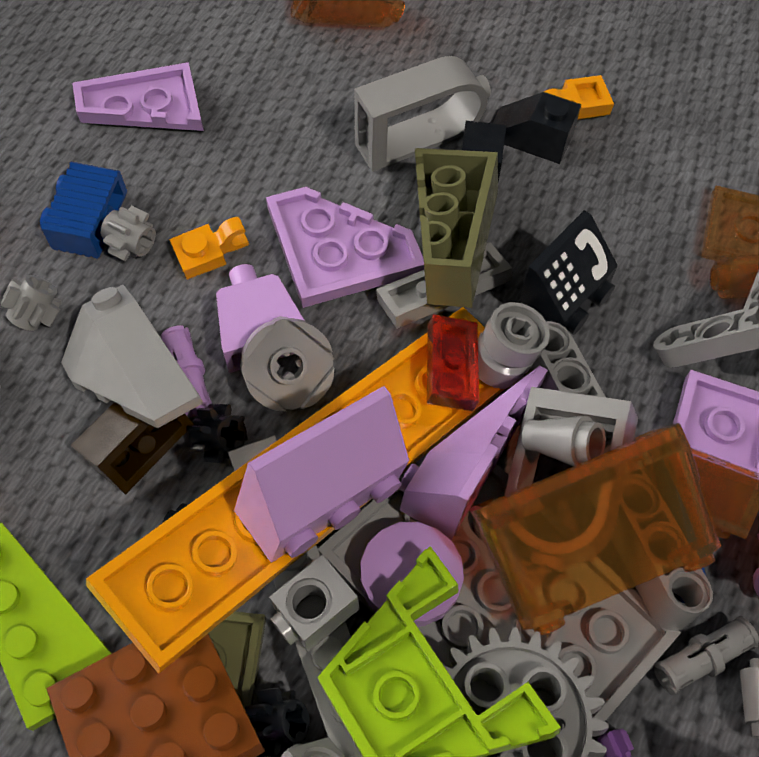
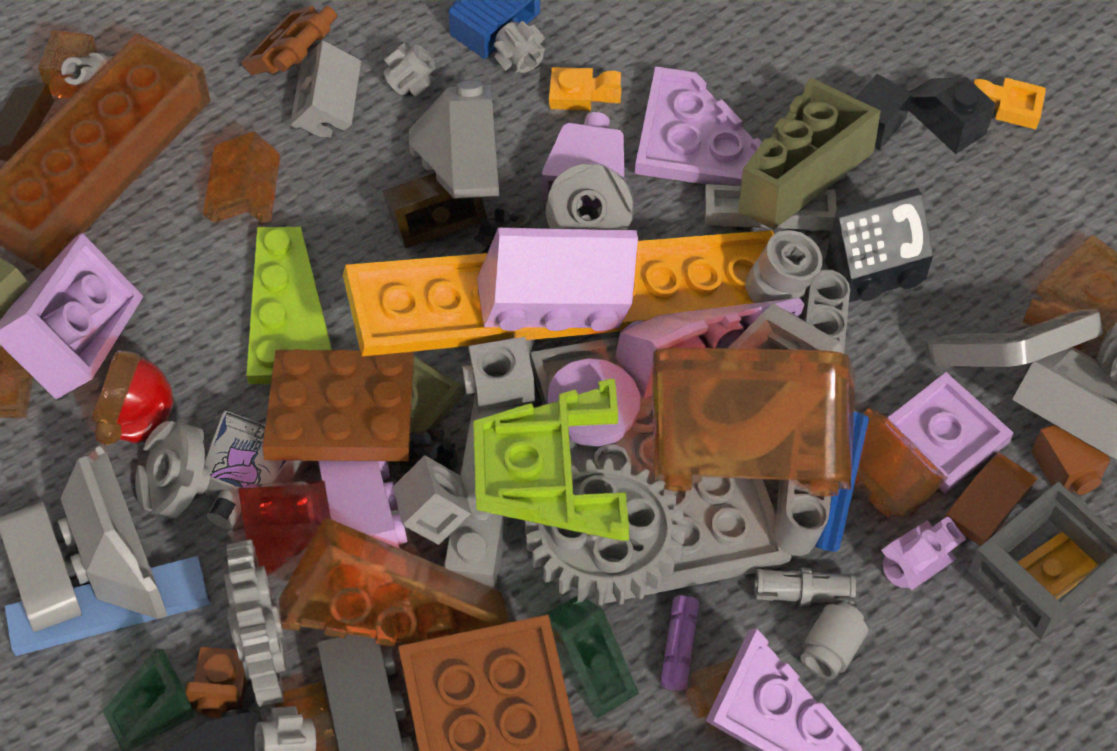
camera: 30 degrees right, 5 degrees down
(180, 345) = (509, 175): lavender pin -> none
(409, 90) = (838, 23): light grey window -> none
(452, 363) = (726, 262): clear red plate -> none
(565, 439) = (756, 336): light grey cone -> none

